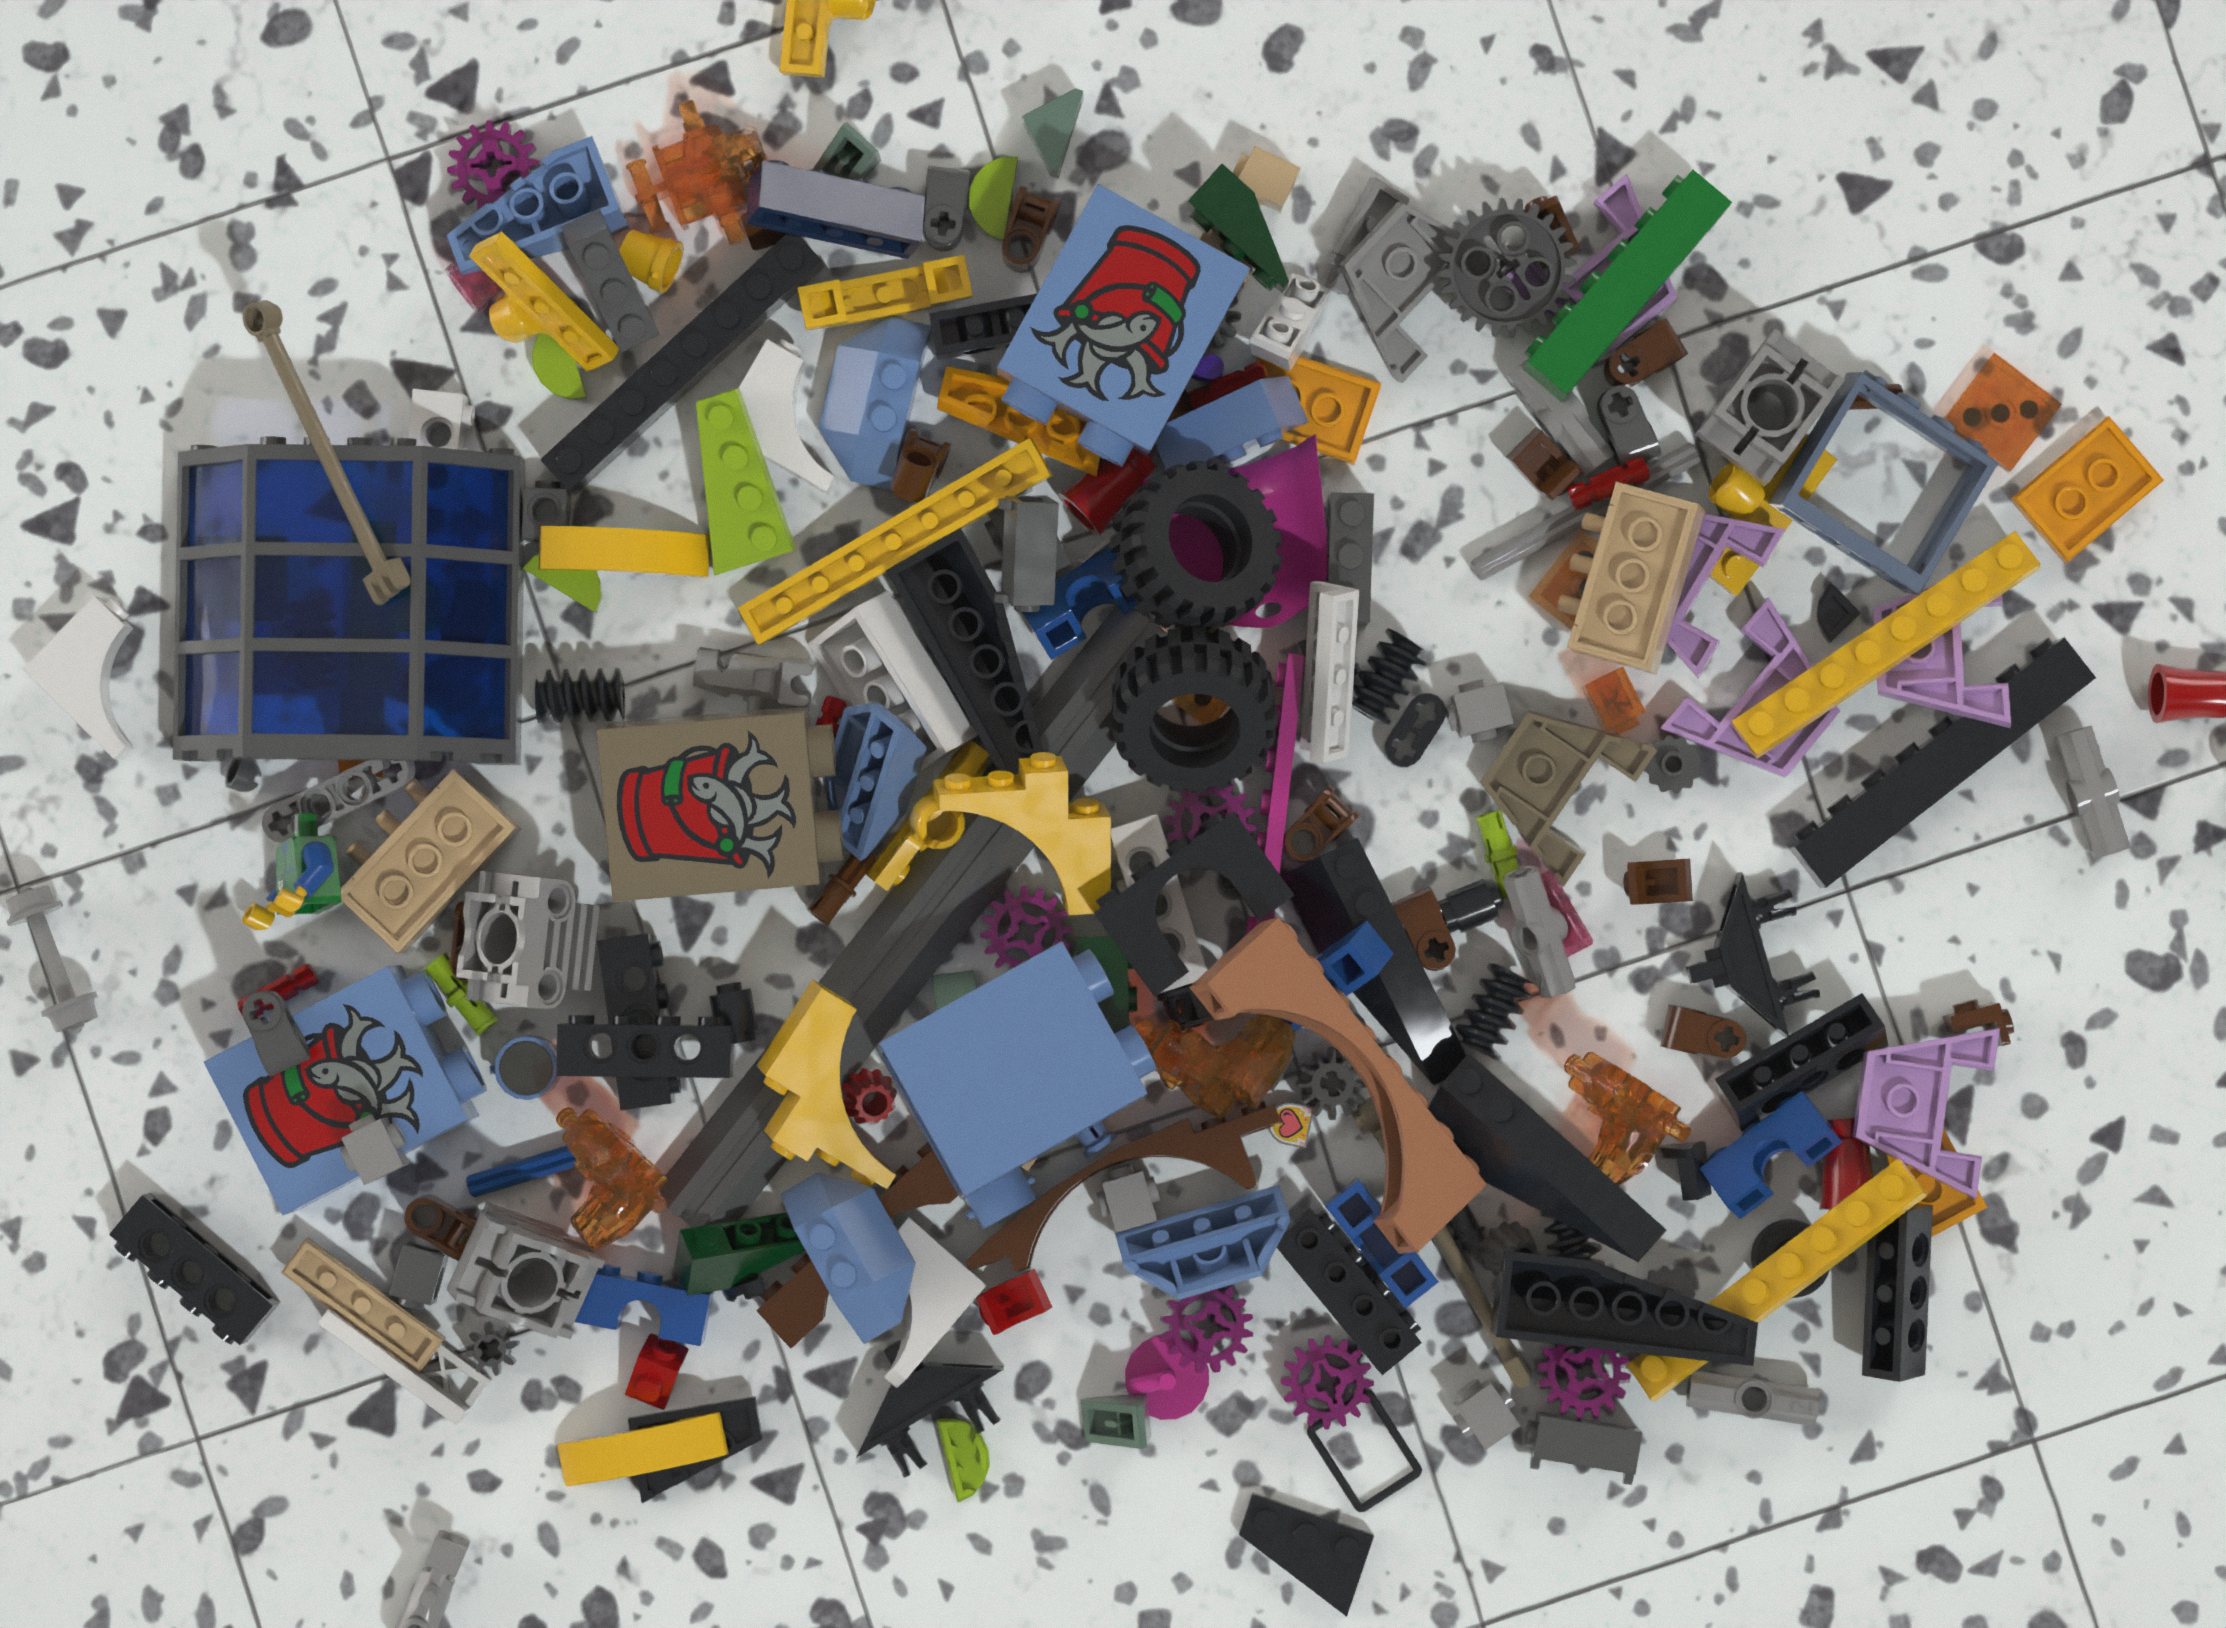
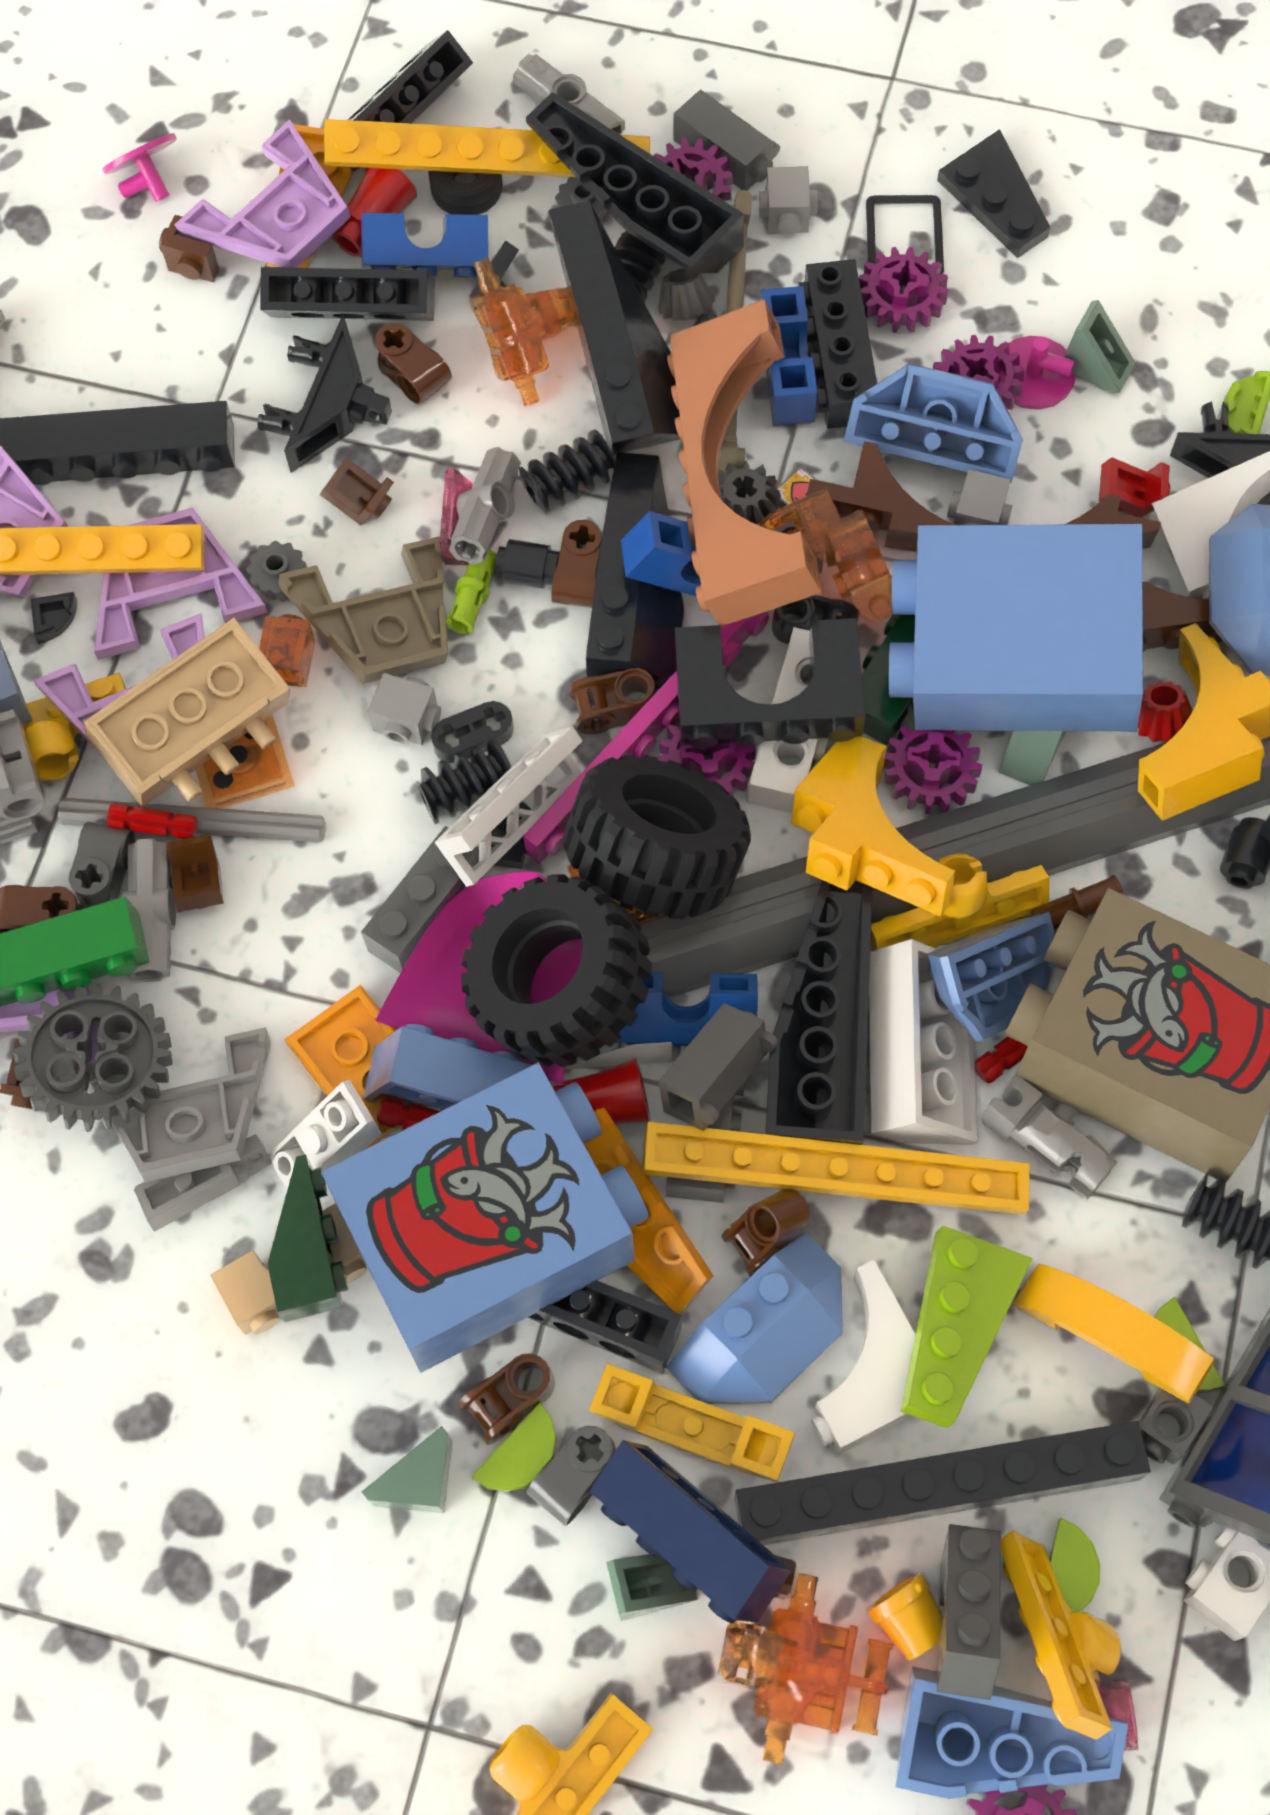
camera: 145 degrees left, 20 degrees down
(2091, 1083) = (148, 175): none -> dark pink shield

